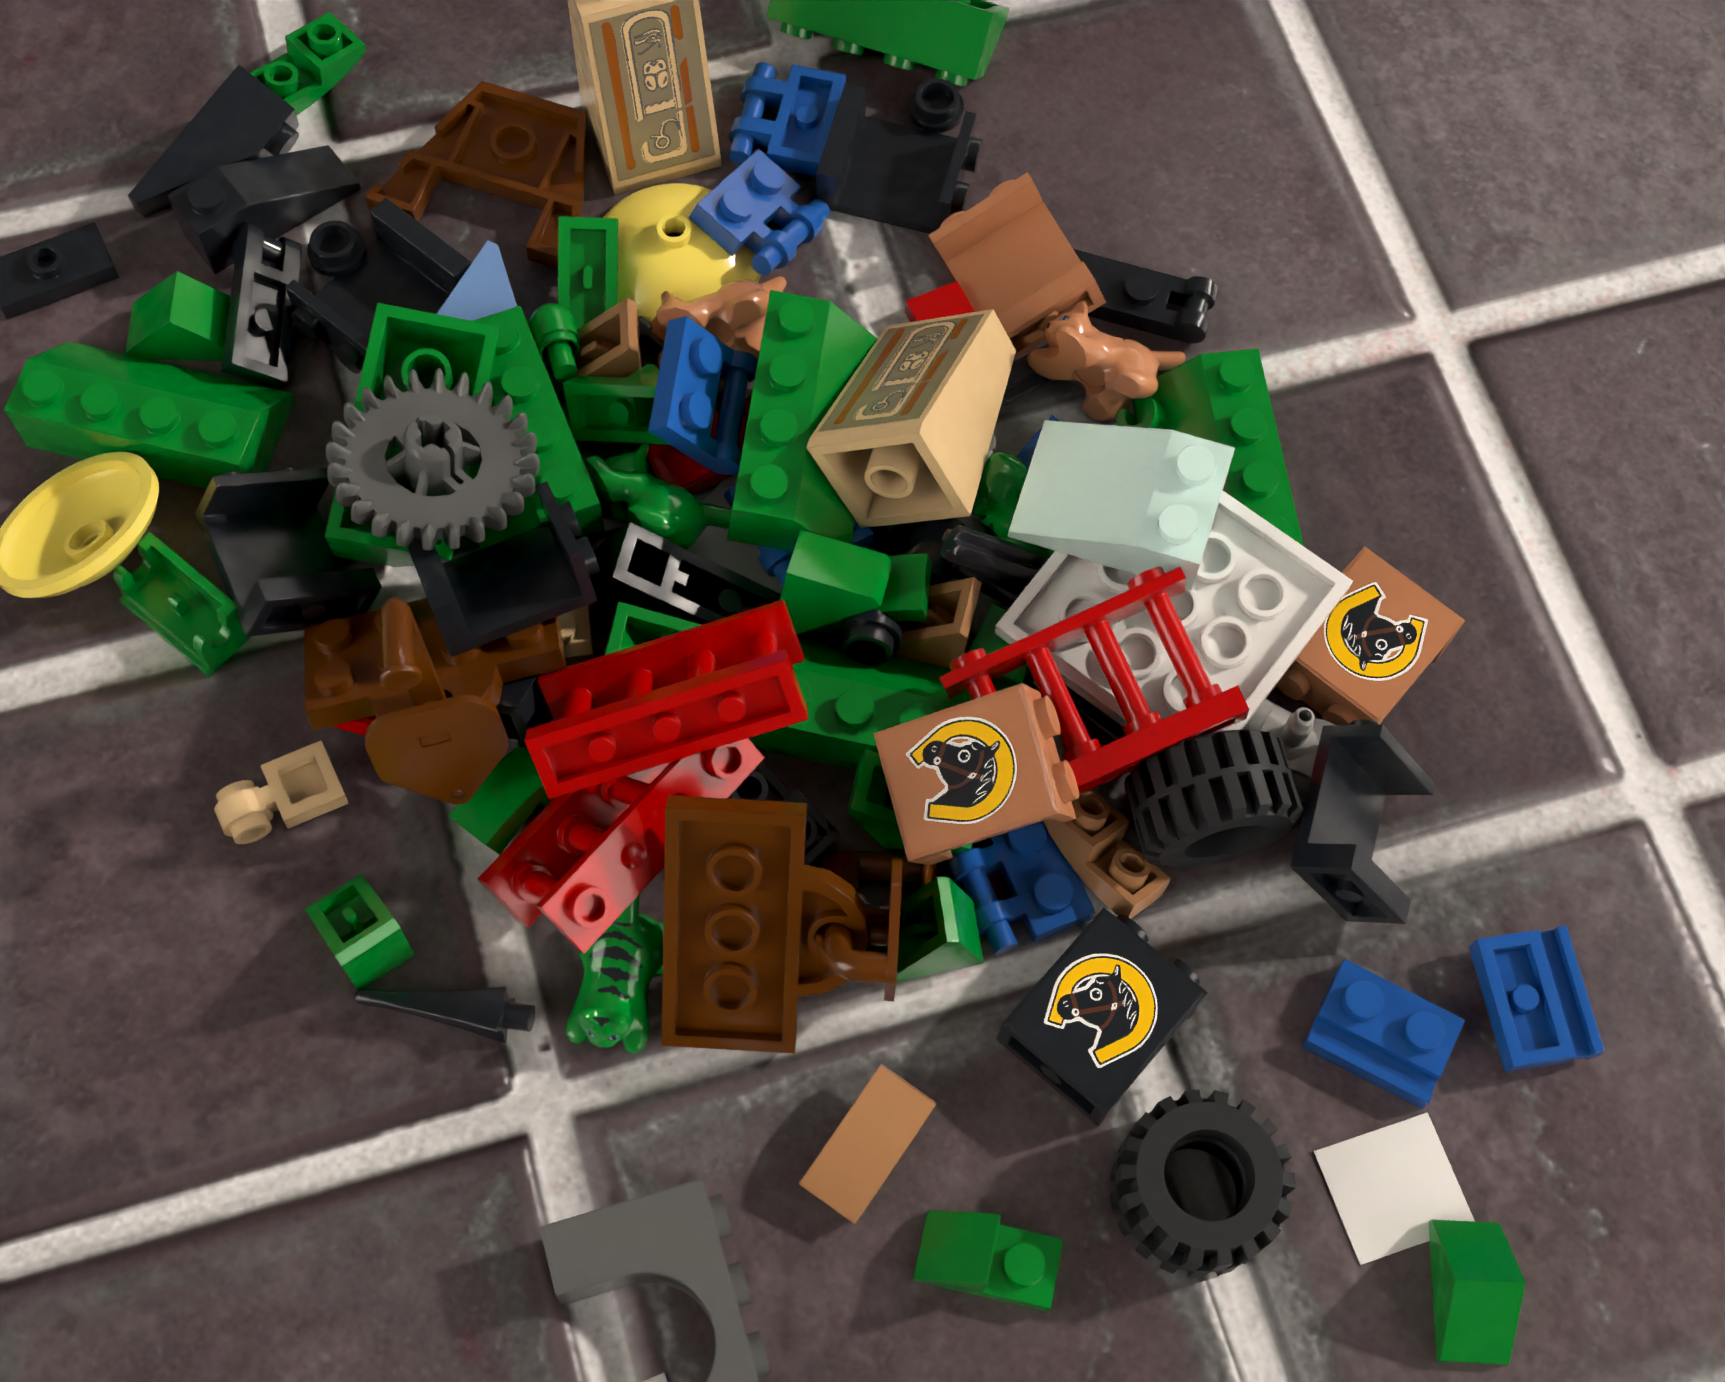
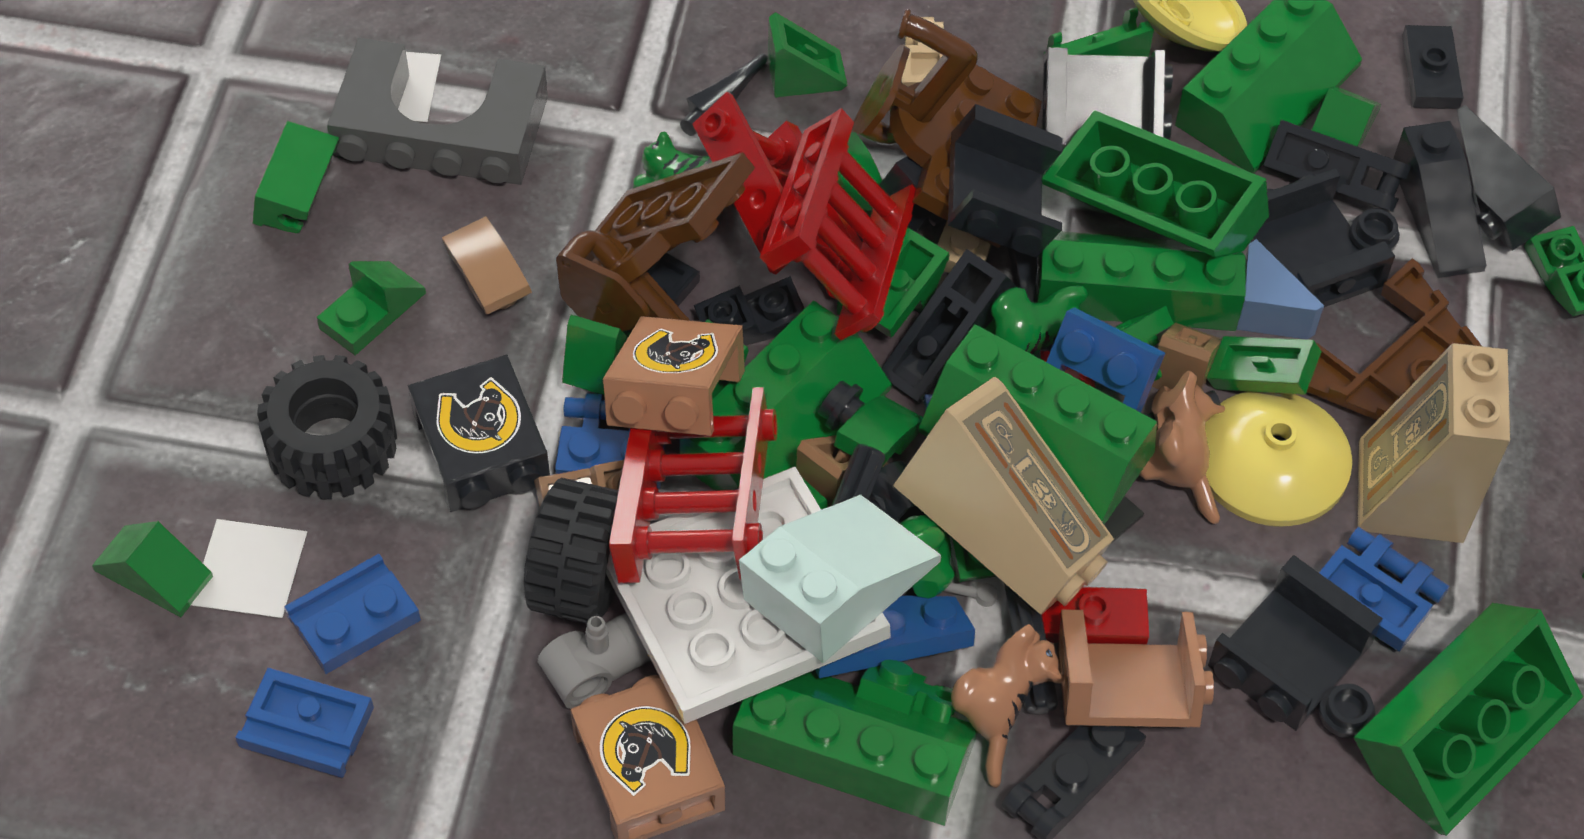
camera: 120 degrees right, 10 degrees down
(429, 434) = (1121, 144): dark grey gear -> none
(556, 338) = (1212, 320): green cylinder -> none
(747, 201) = (1292, 505): blue plate -> none
(832, 581) = (896, 384): green slope -> none
(1342, 818) = (502, 641): black panel -> none

